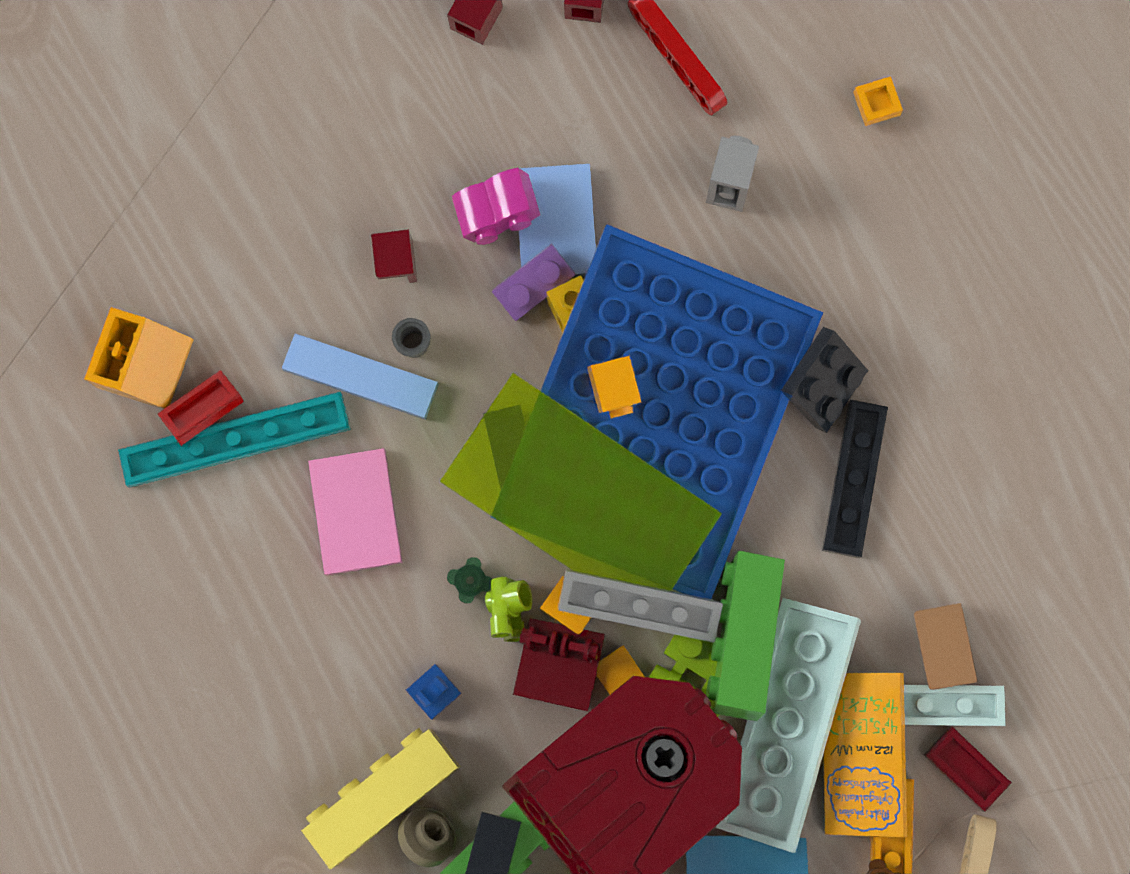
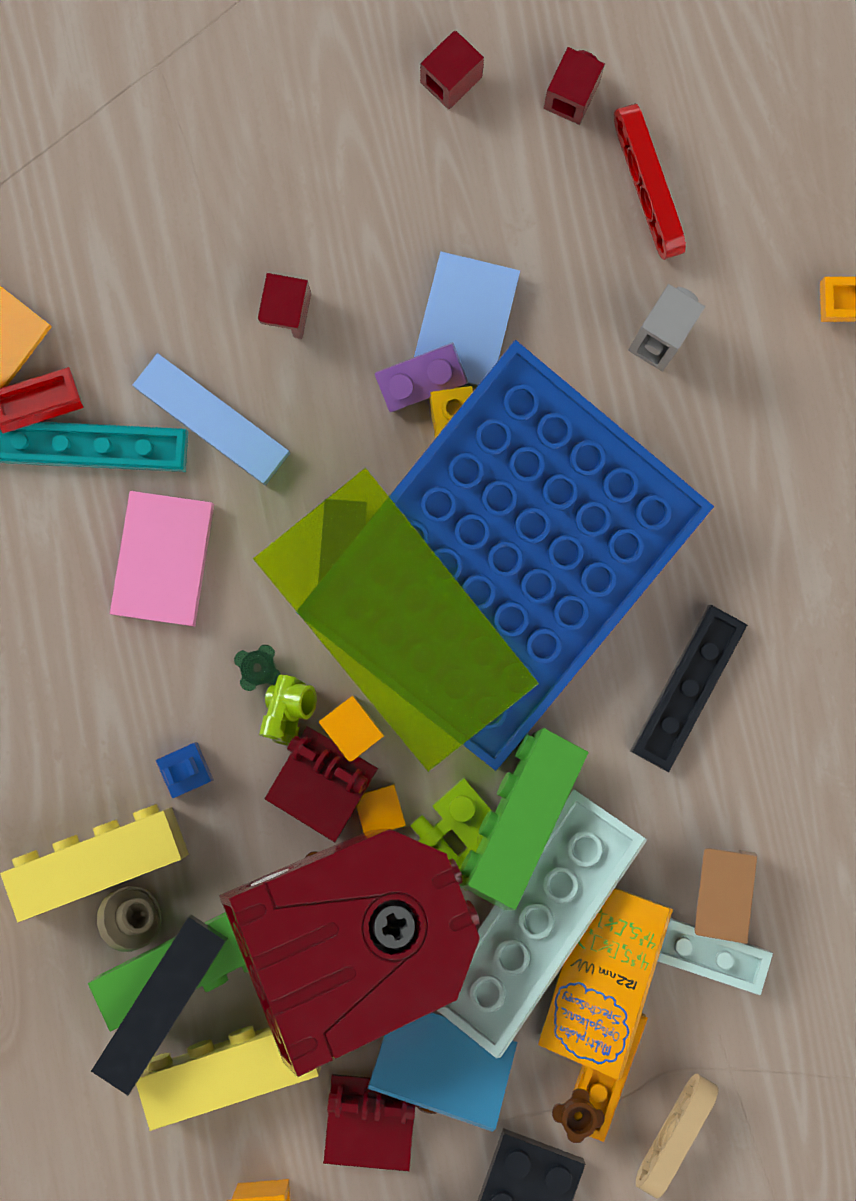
camera: 10 degrees right, 5 degrees up
(406, 327) = (270, 384): dark grey piece -> none
(495, 206) = (407, 284): dark pink brick -> none
(614, 386) = (468, 517): light orange brick -> none
(640, 605) = (421, 753): light grey plate -> none
(824, 379) = (692, 576): black plate -> none
(967, 769) = (706, 1024): dark red tile -> none

